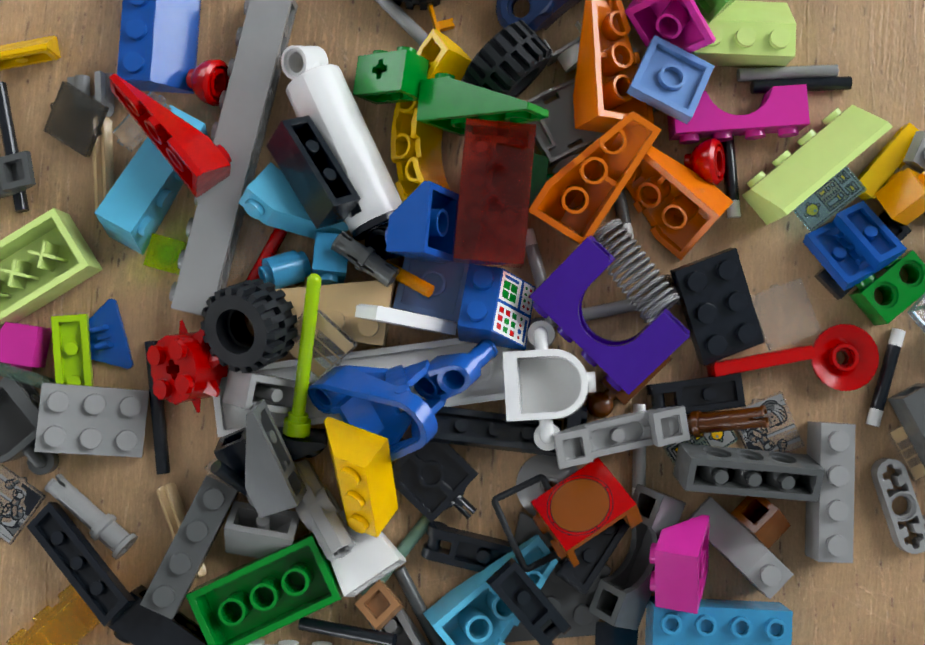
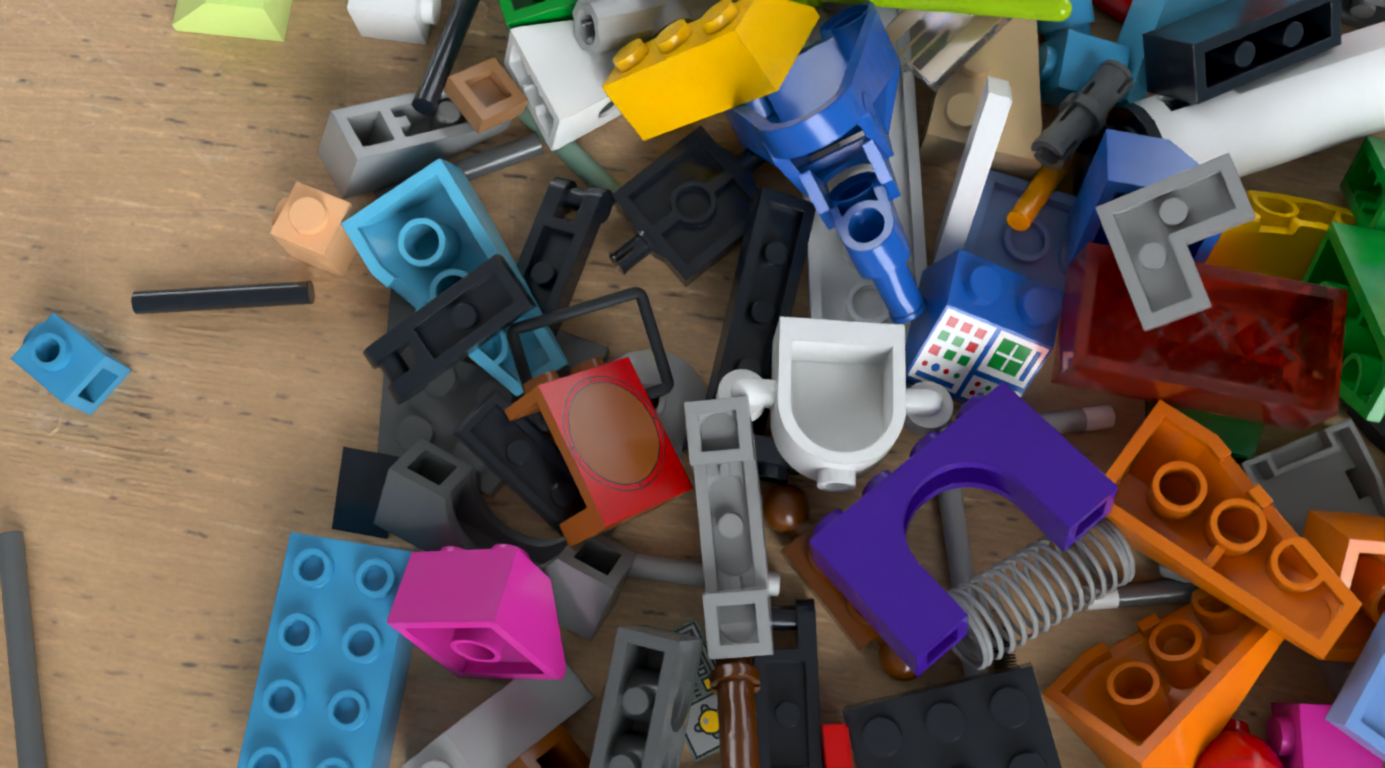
camera: 95 degrees right, 10 degrees down
(455, 226) = (1155, 226): none -> light grey plate

